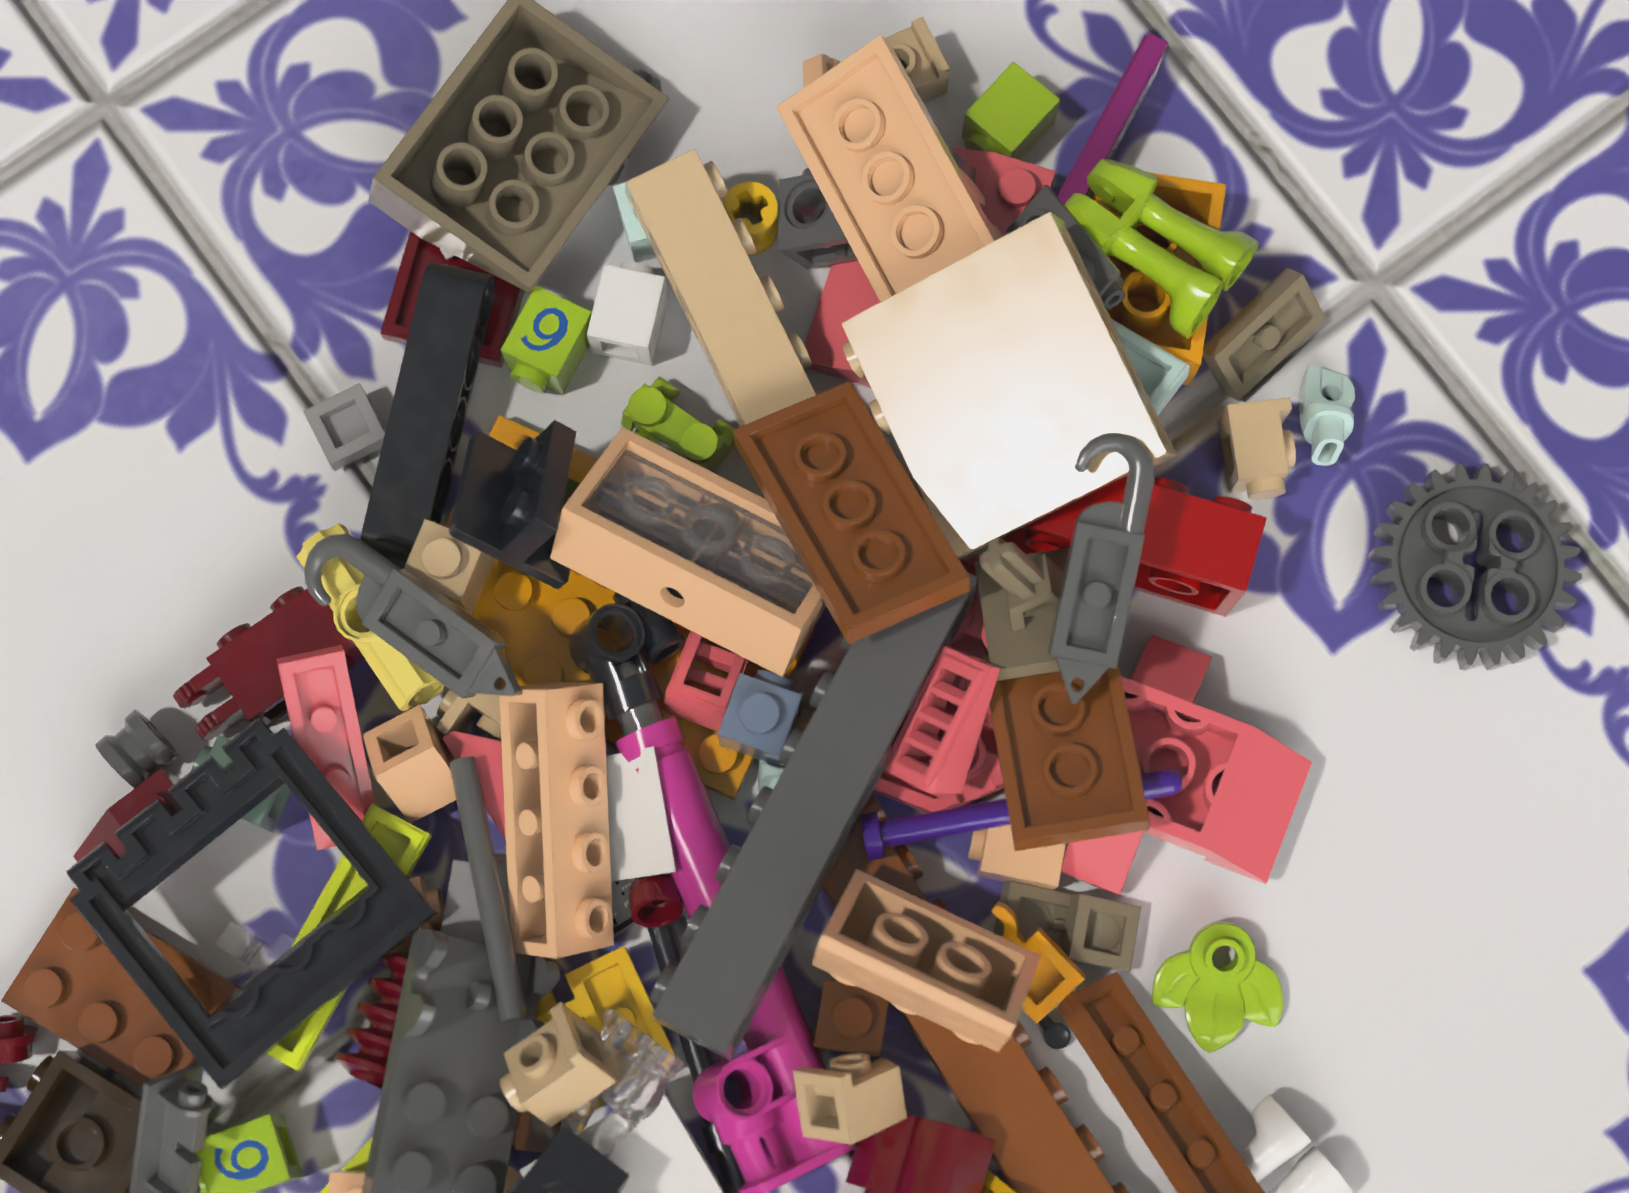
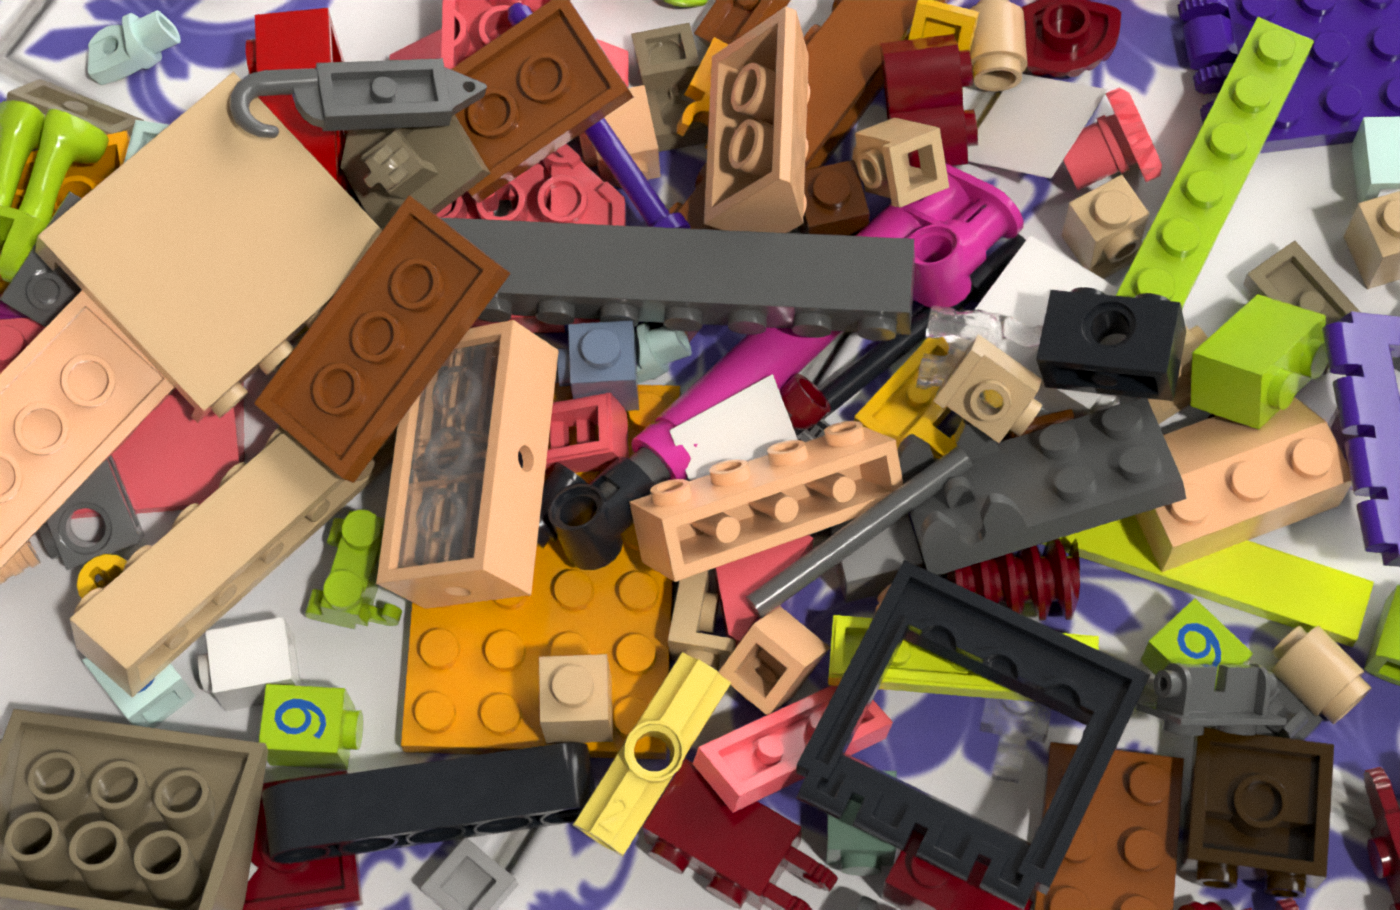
camera: 110 degrees left, 10 degrees down
(417, 620) = (641, 680): dark grey plate -> none
(514, 500) = (482, 638): black bracket -> none
(918, 735) = (596, 200): coral slope -> none
(1256, 447) = (180, 78): tan brick -> none

